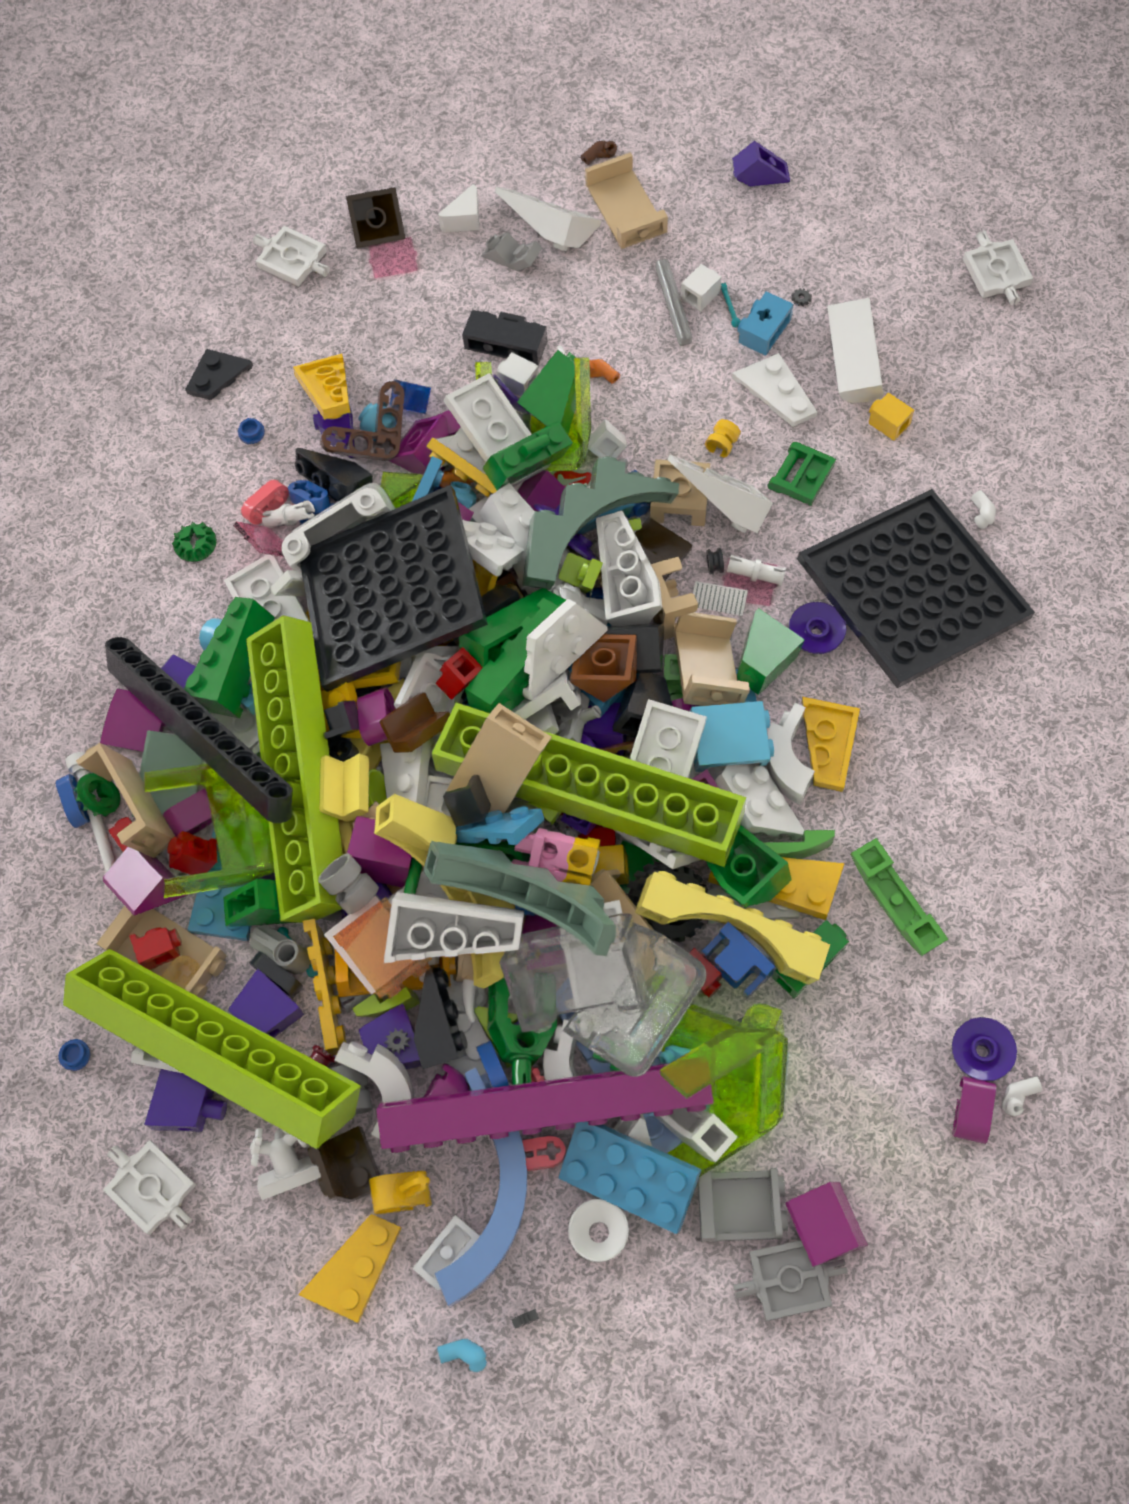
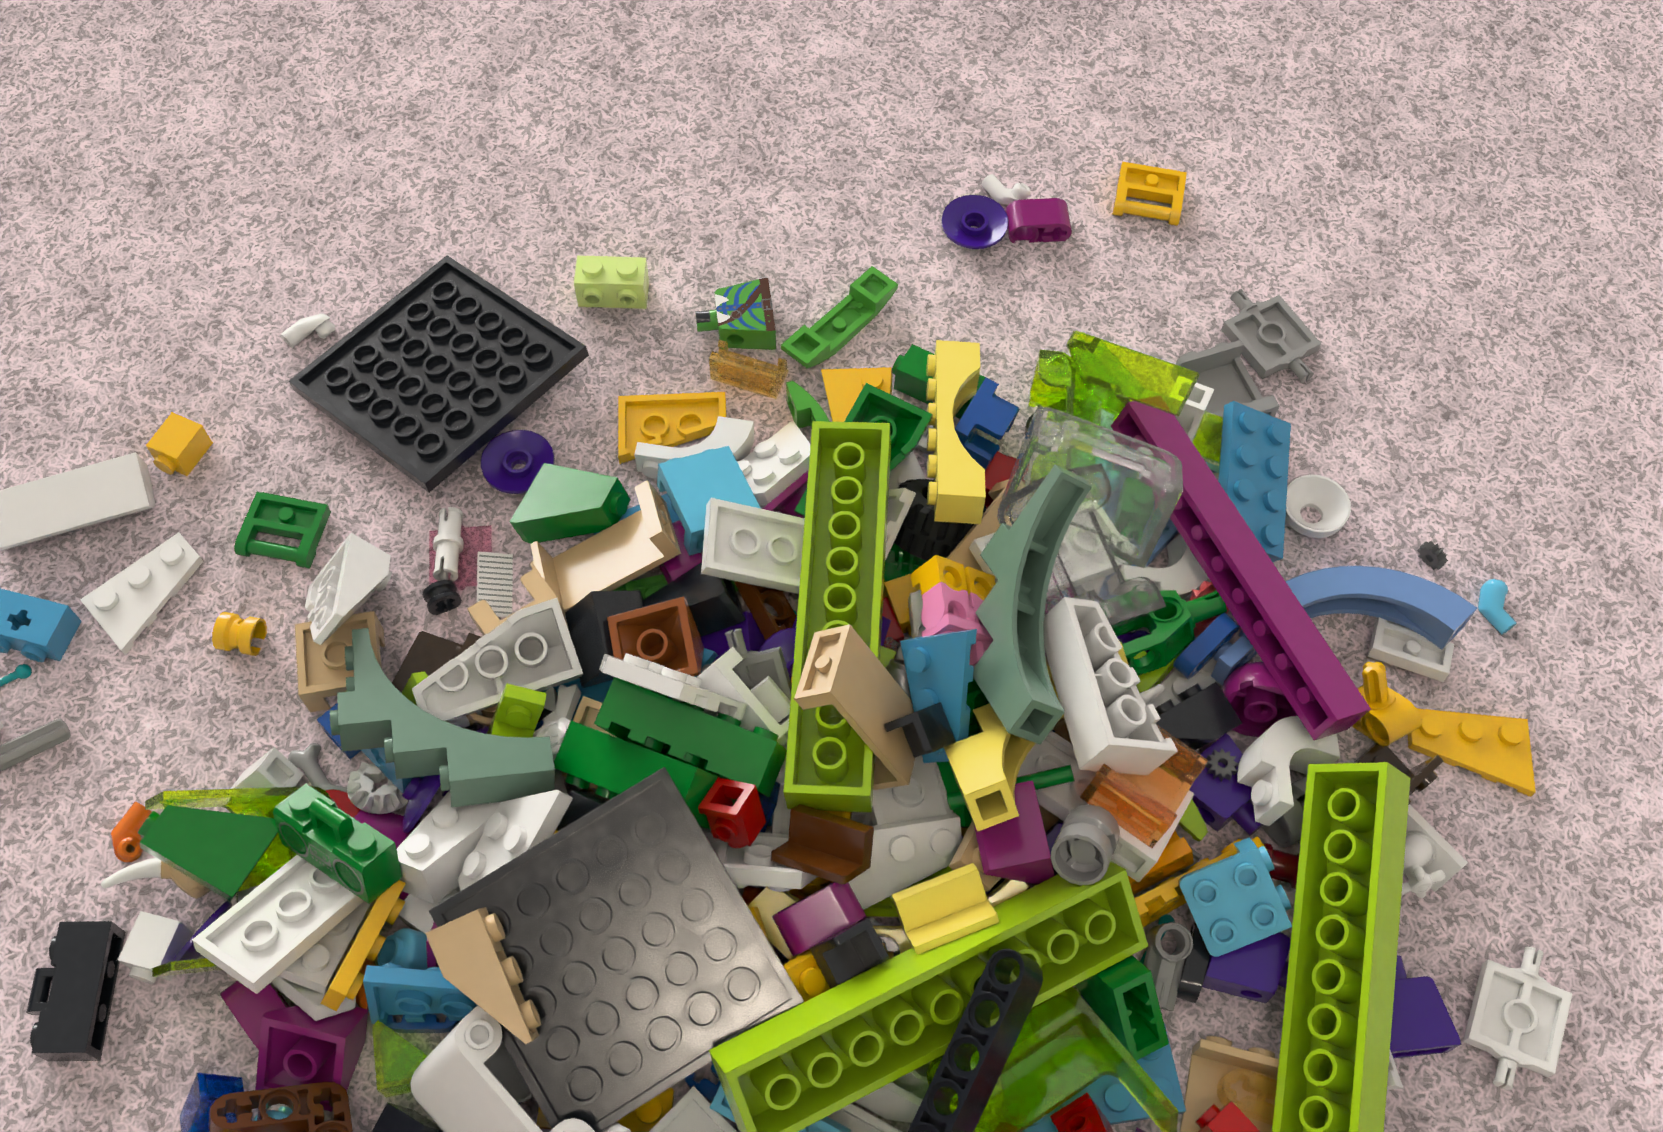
camera: 115 degrees left, 5 degrees down
(289, 1004) = (1236, 899): none -> medium azure bracket
(401, 505) = (476, 964): none -> tan slope
(826, 1223) = (1209, 310): magenta slope -> none
(865, 813) = (747, 372): none -> clear yellow hinge
(920, 821) = (742, 316): none -> torso
(977, 727) = (611, 282): none -> yellowish green brick
(1000, 1237) = (1153, 185): none -> yellow plate

